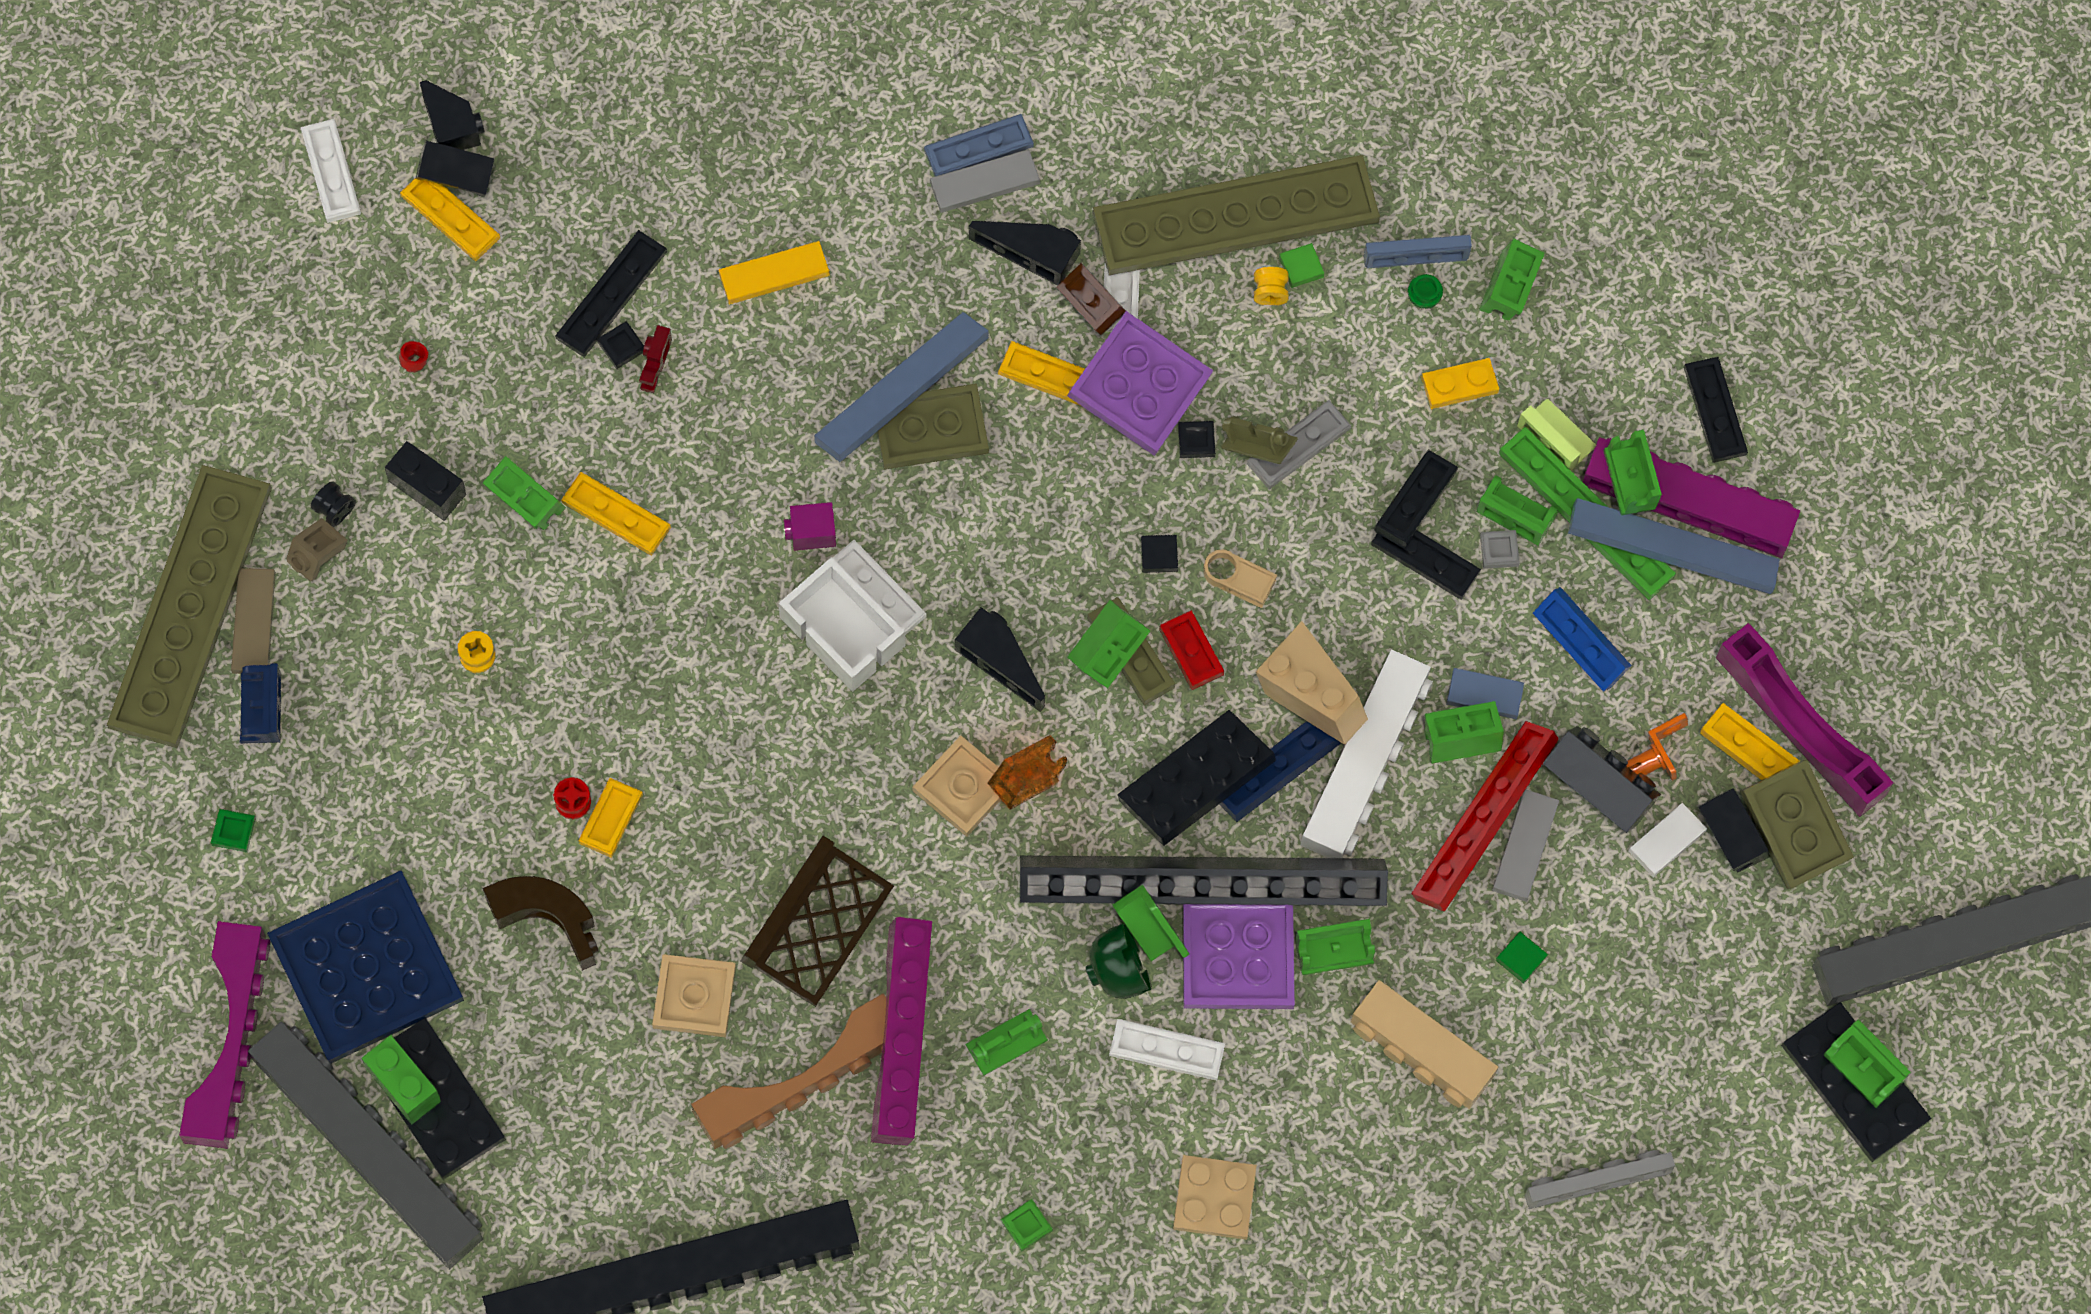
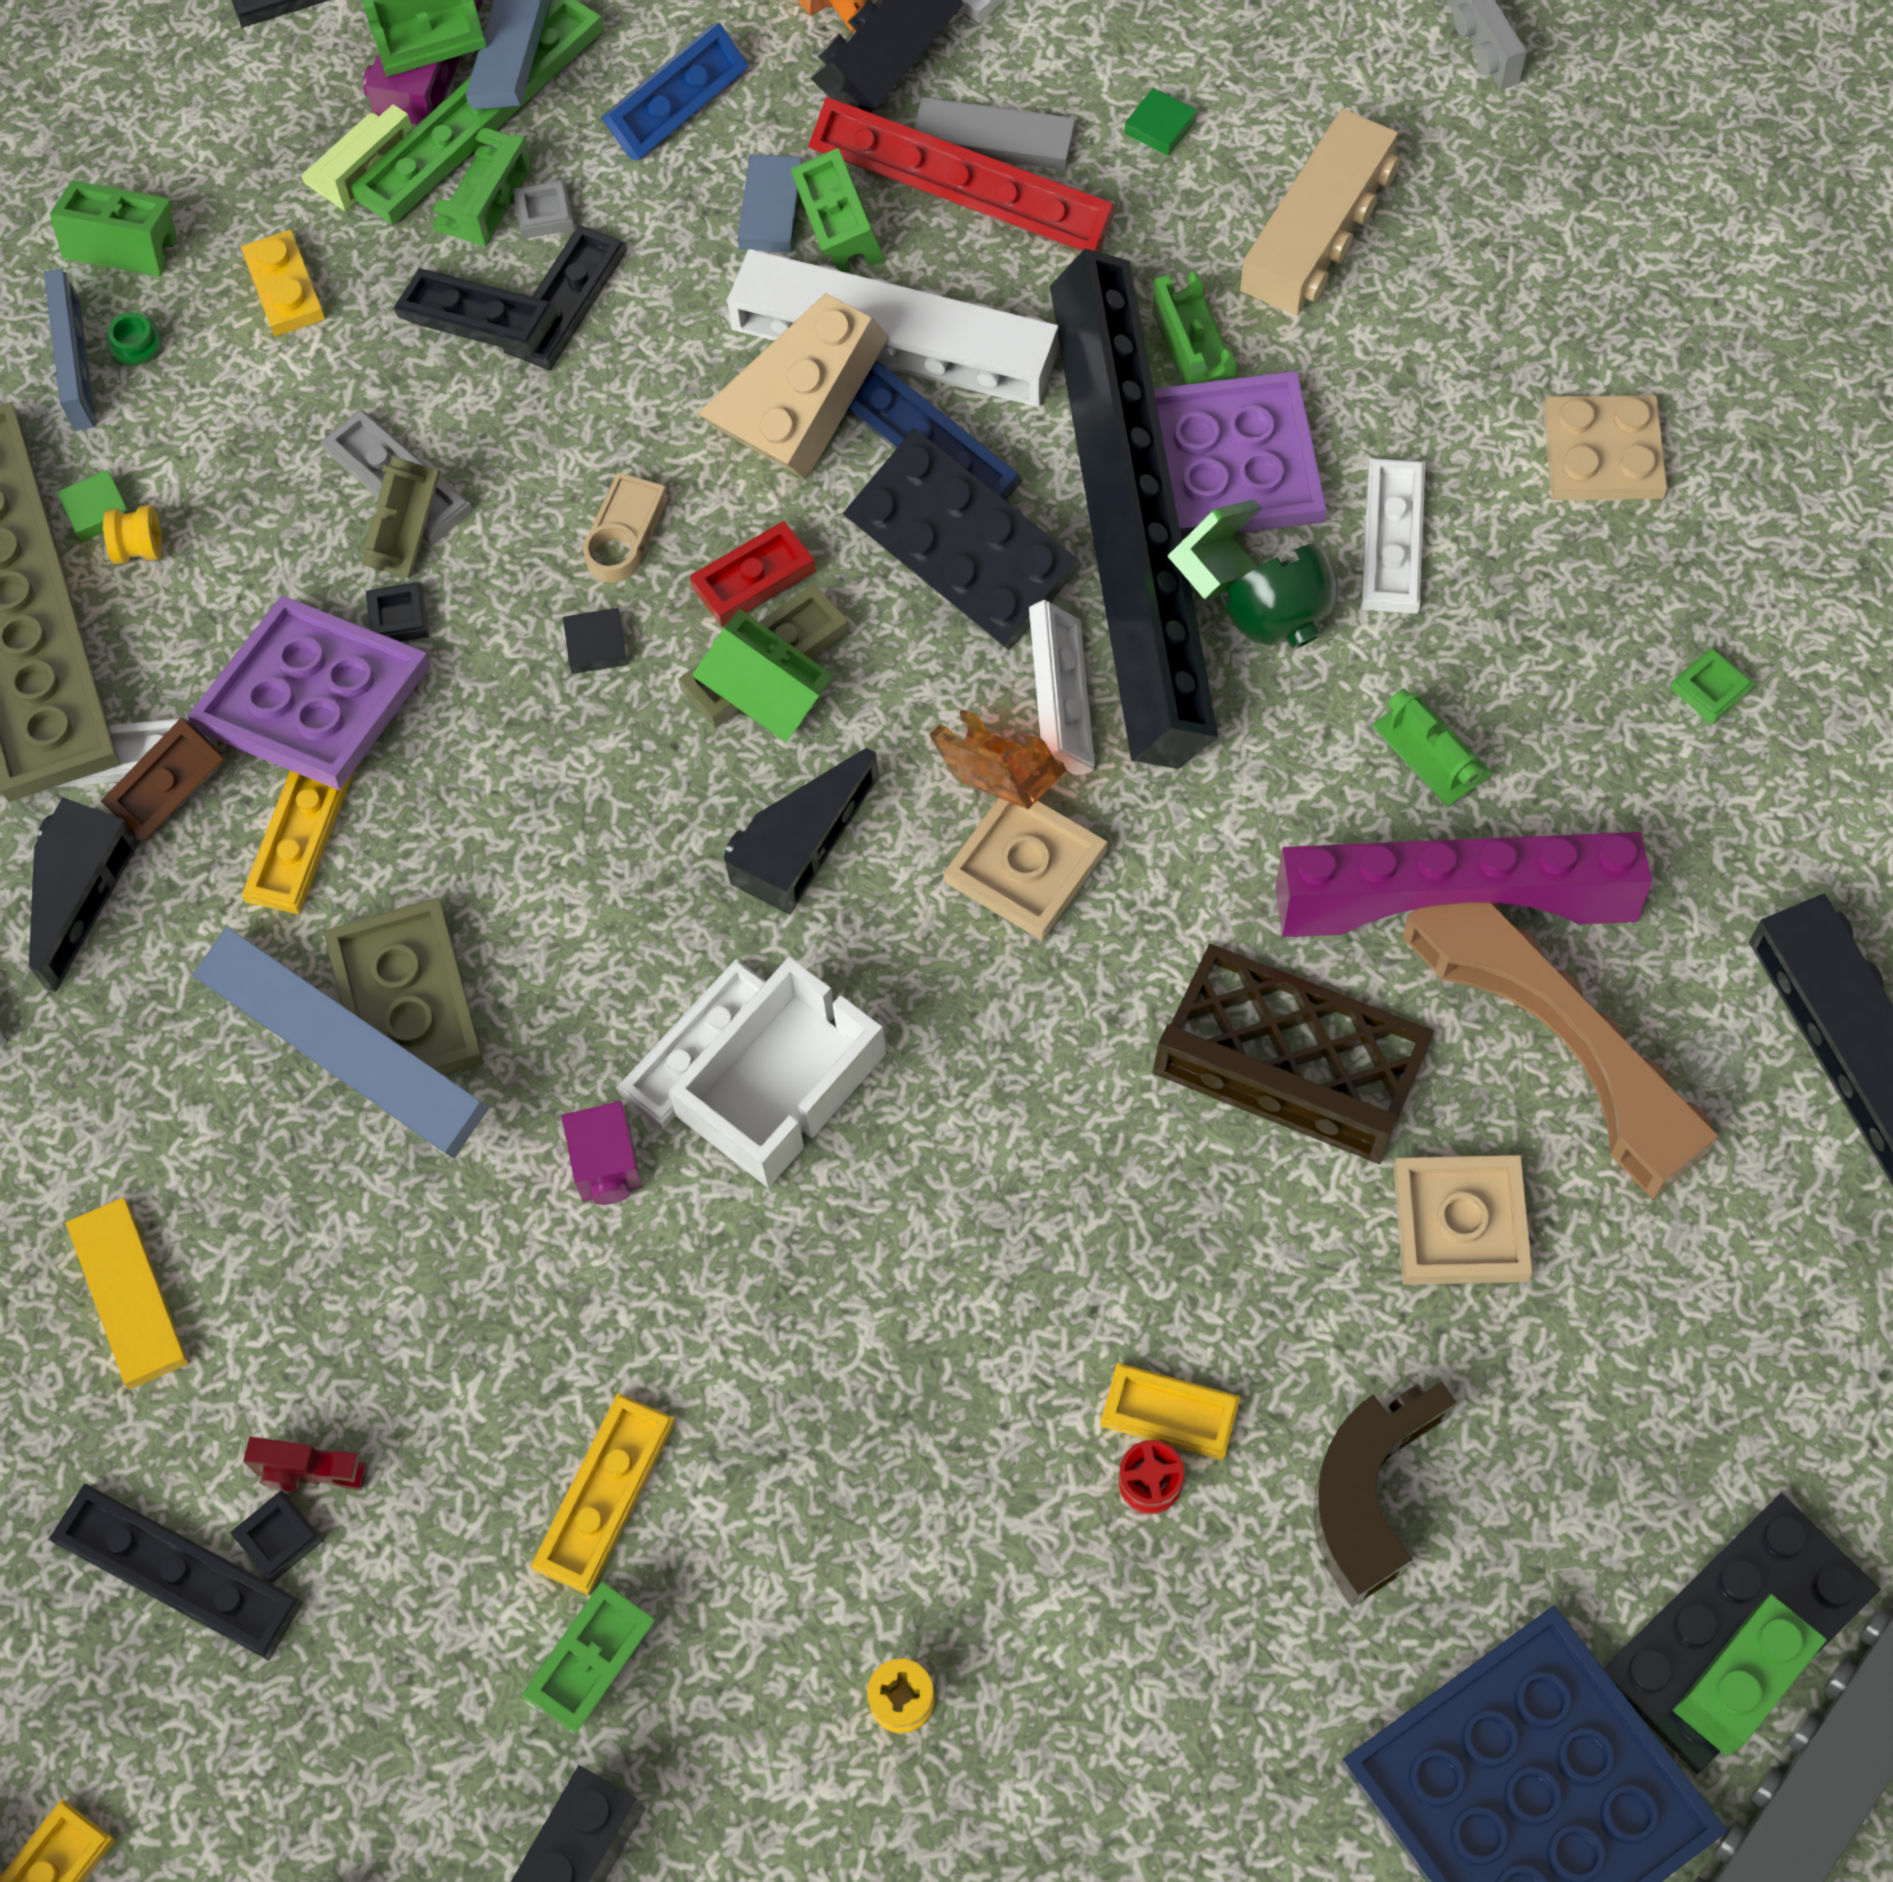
camera: 90 degrees left, 5 degrees down
(1079, 823) = (1062, 686): none -> white tile

